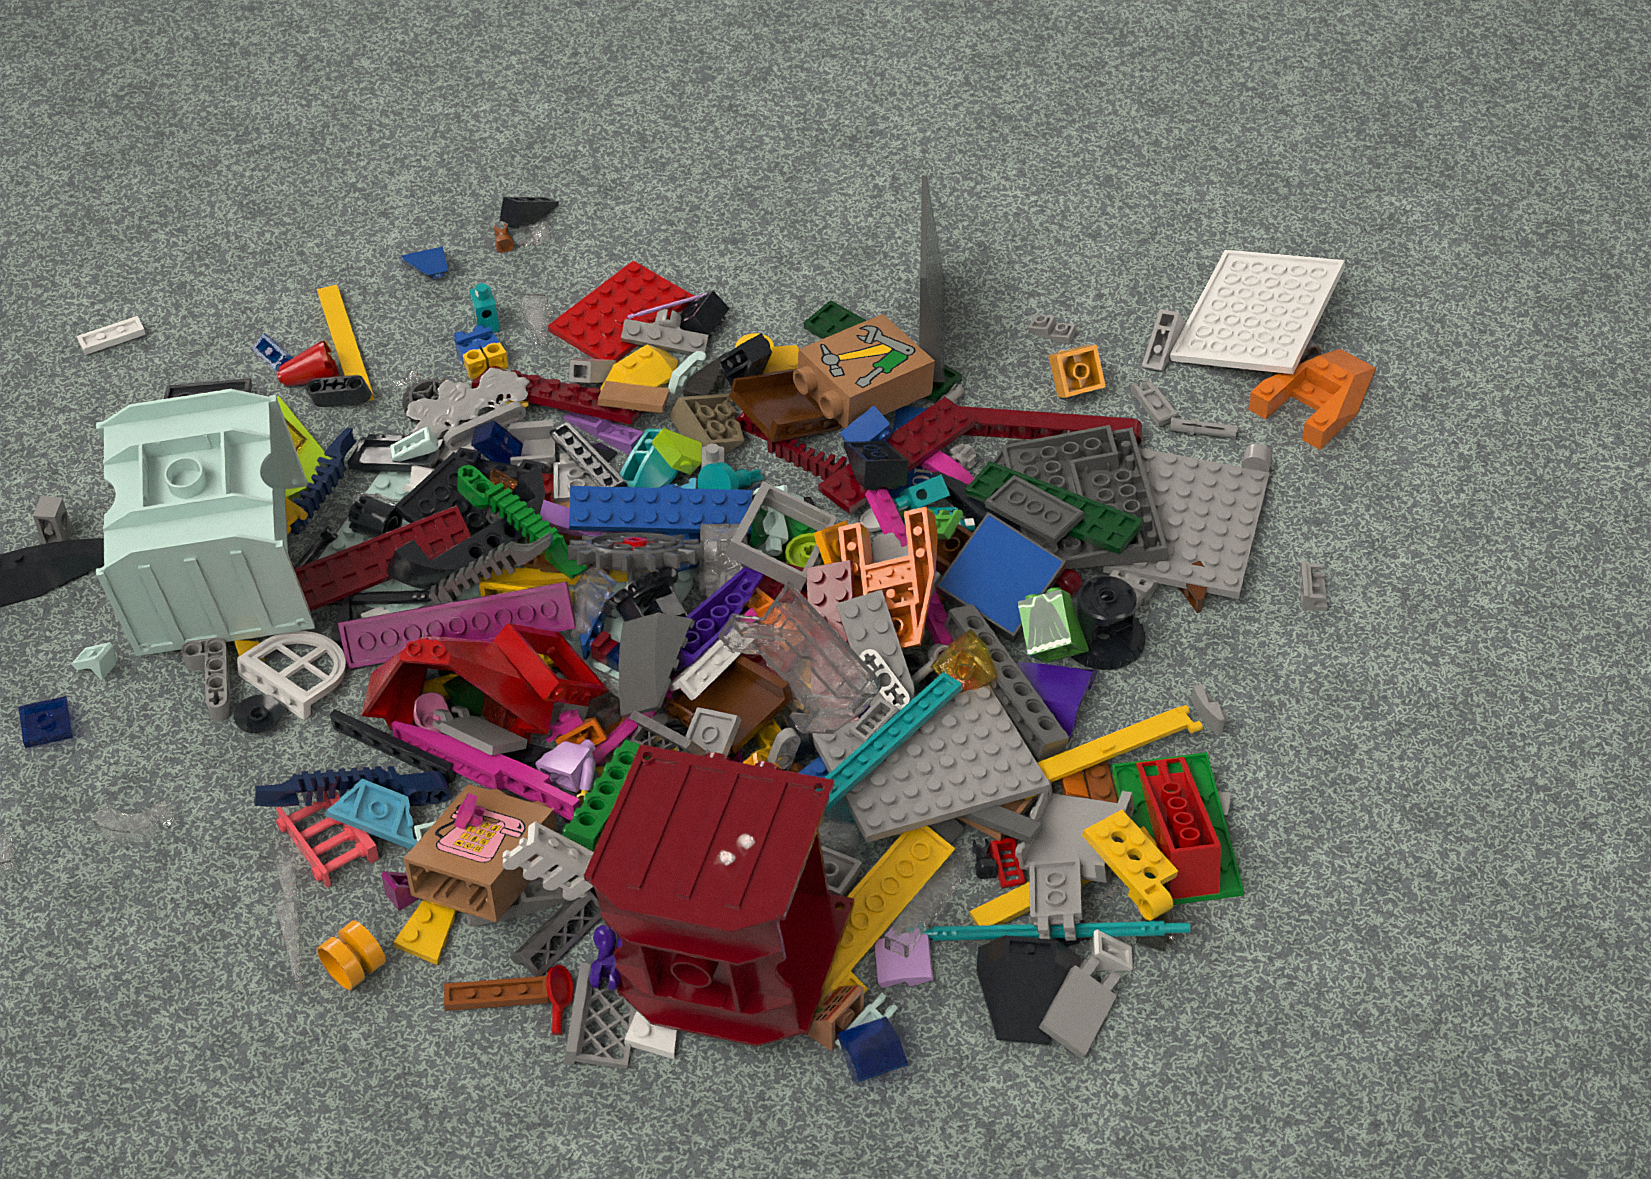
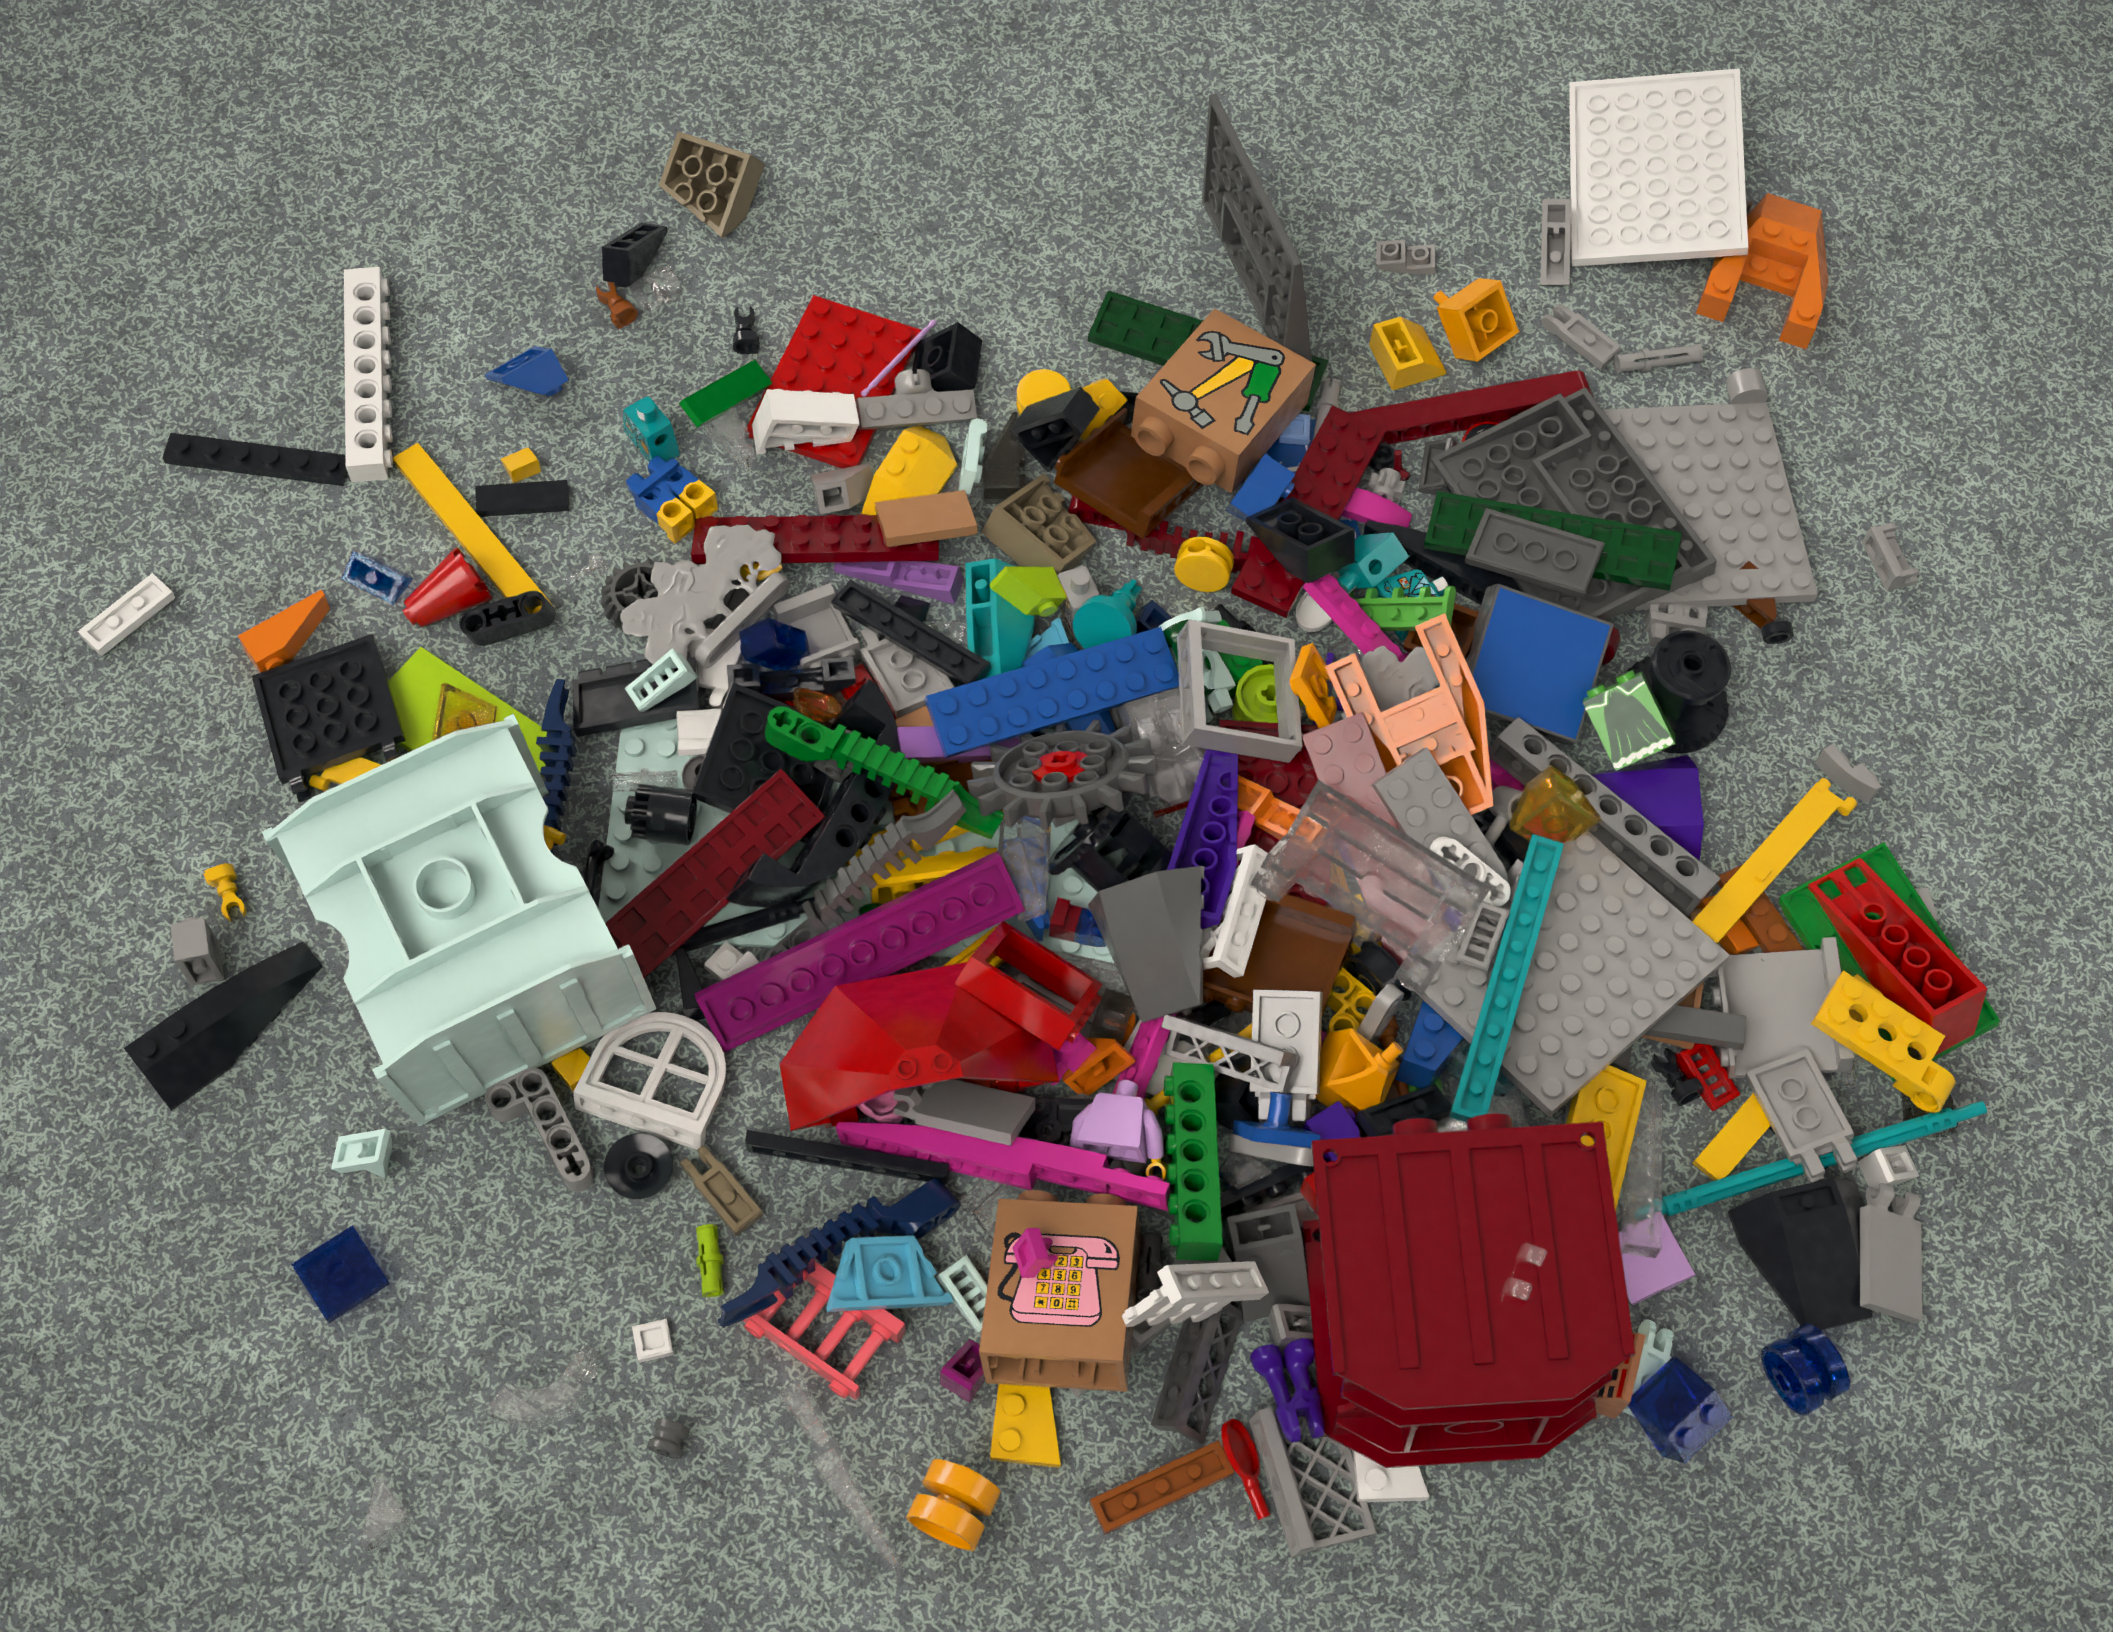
camera: 25 degrees left, 15 degrees up
(91, 491) = (222, 878): none -> yellow piece
(195, 869) = (668, 1438): none -> dark grey wheel
(201, 366) = (283, 635): none -> orange slope
(216, 815) = (652, 1340): none -> white tile
(235, 272) = (255, 459): none -> black plate
(278, 772) = (709, 1260): none -> lime pin
(304, 745) = (723, 1193): none -> dark tan hinge
(324, 240) = (366, 375): none -> white brick
(386, 331) = (522, 498): none -> black tile
(395, 313) = (521, 465): none -> yellow slope
(536, 296) = (725, 393): none -> green slope
(575, 275) = (745, 339): none -> black piece
(584, 322) = (804, 417): none -> white wedge
(599, 181) = (711, 181): none -> dark tan wedge
(809, 469) = (1204, 564): none -> yellow head
(916, 408) = (1298, 431): none -> light blue tile
(972, 438) = (1385, 451): none -> black plate
(975, 1051) = (1805, 1369): none -> clear blue wheel
(979, 453) = (1398, 466): none -> dark red hand
(1019, 381) = (1404, 353): none -> yellow slope
(1201, 611) = (1777, 632): none -> black tile

